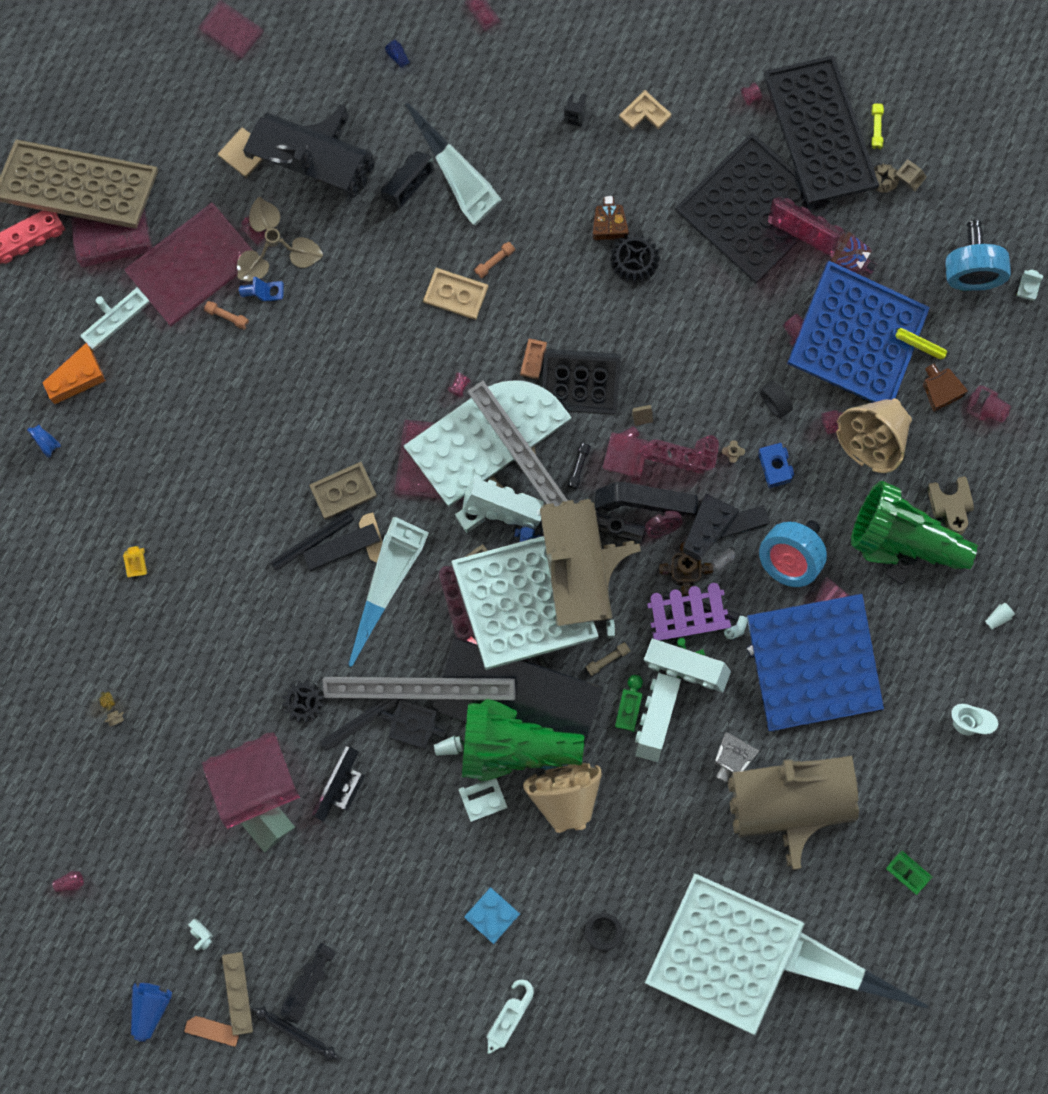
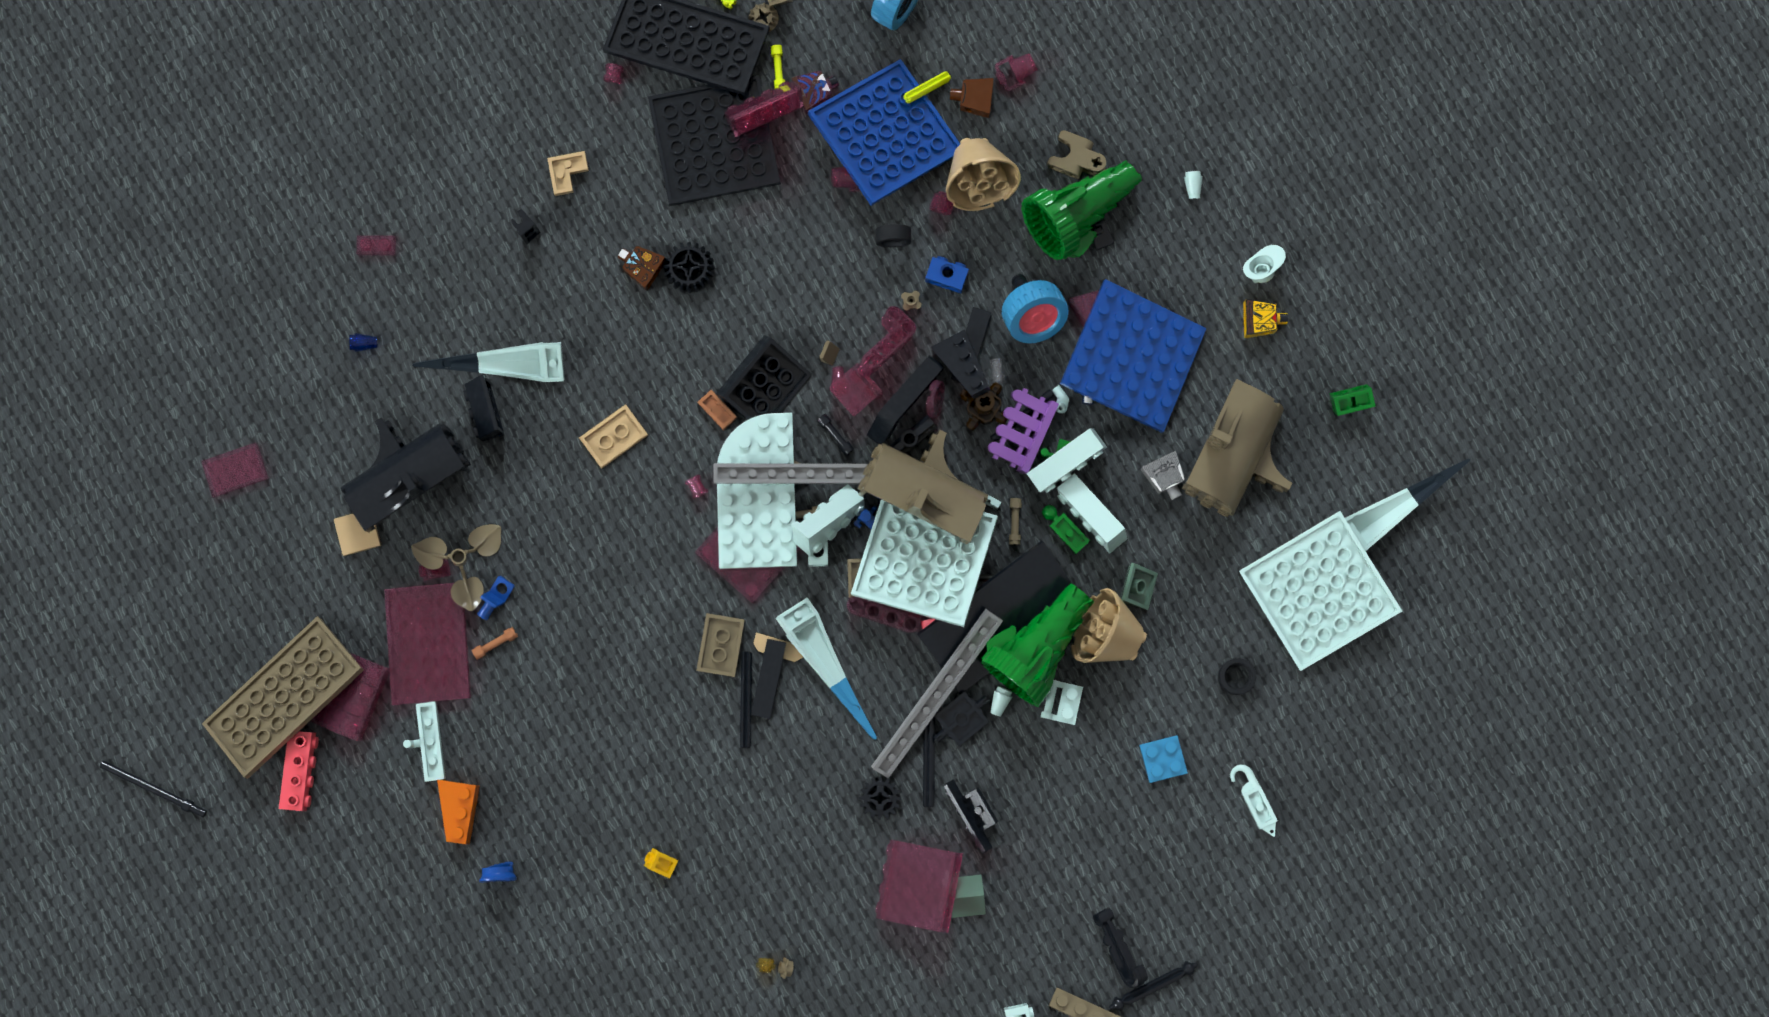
camera: 60 degrees left, 5 degrees up
(482, 269) = (605, 368): nougat bar -> none
(623, 797) = (1138, 586): none -> sand green slope
(862, 207) = (776, 52): none -> neon yellow bar
(925, 749) = (1261, 318): none -> torso

